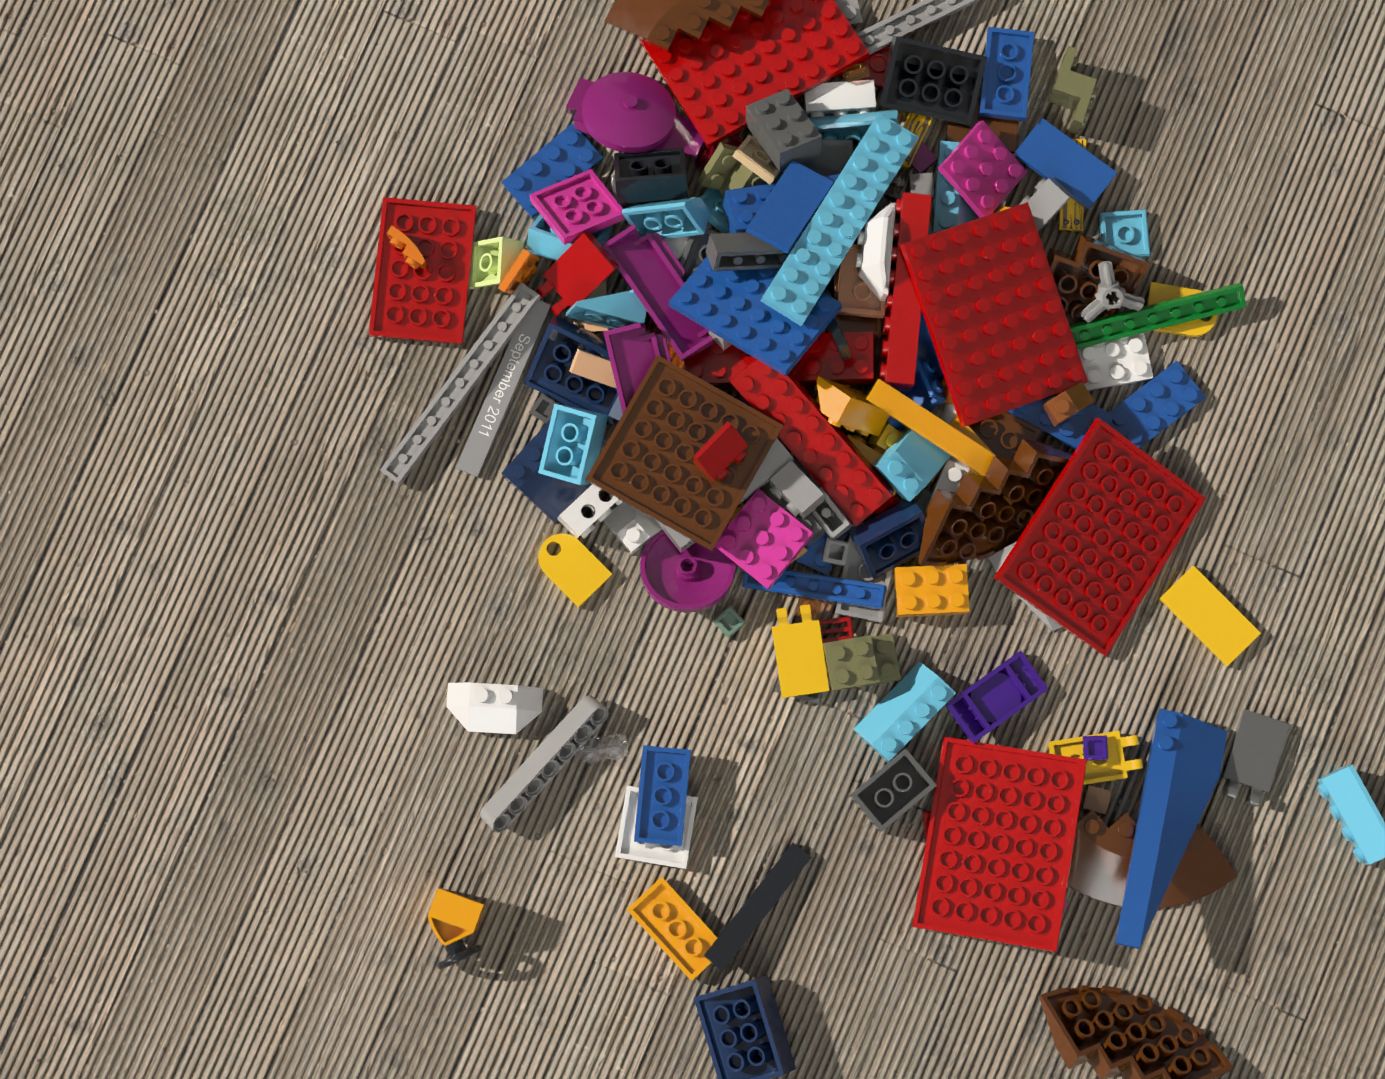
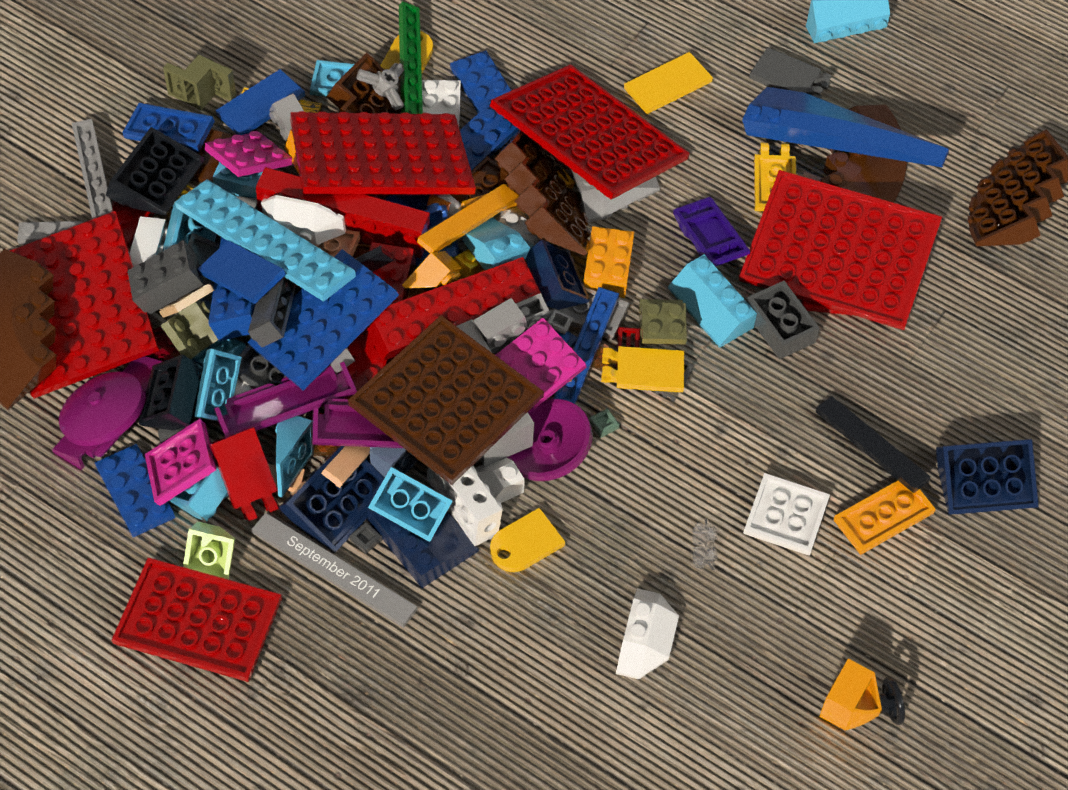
camera: 80 degrees left, 25 degrees down
(411, 253) = (179, 616): orange slope -> none
(460, 383) = (323, 604): light grey plate -> none
(521, 271) = (227, 522): orange tile -> none
(544, 764) = (713, 596): light grey beam -> none
(662, 795) = (760, 497): blue plate -> none
(720, 453) = (455, 359): red slope -> none
(856, 72) = (129, 227): clear orange tile -> none
(1067, 404) = (473, 129): dark orange slope -> none
(1095, 747) = (767, 171): dark purple tile -> none

